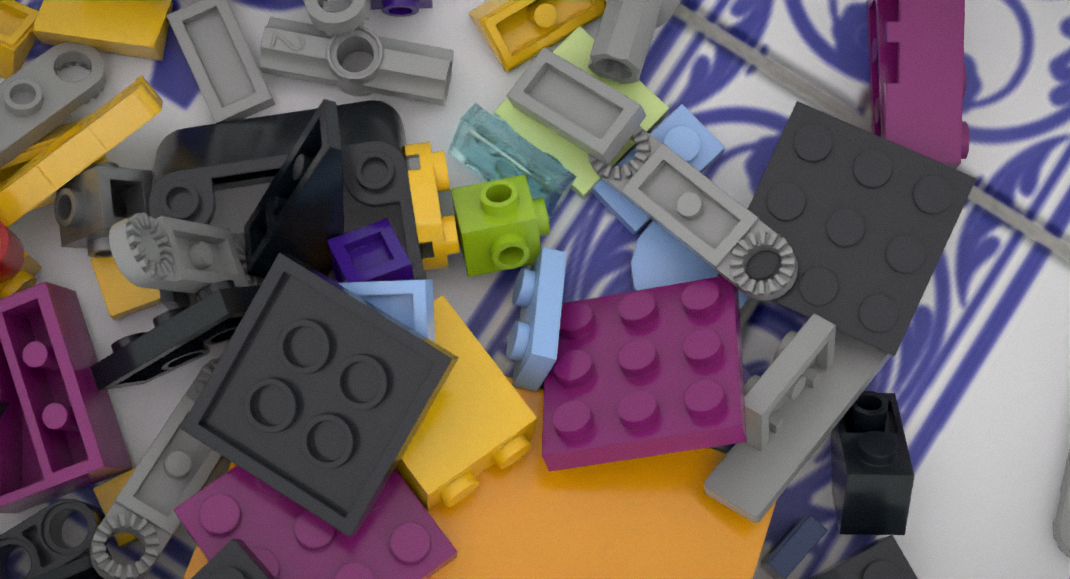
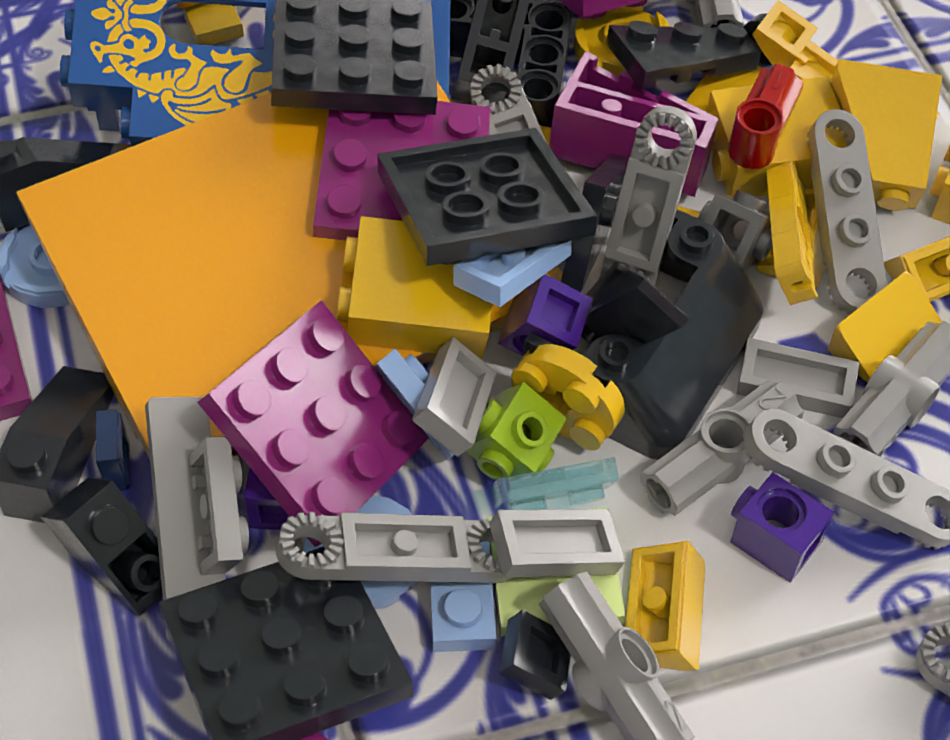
camera: 130 degrees right, 25 degrees down
(520, 281) = (455, 397): none -> light grey tile
(675, 62) = (535, 655): none -> black plate

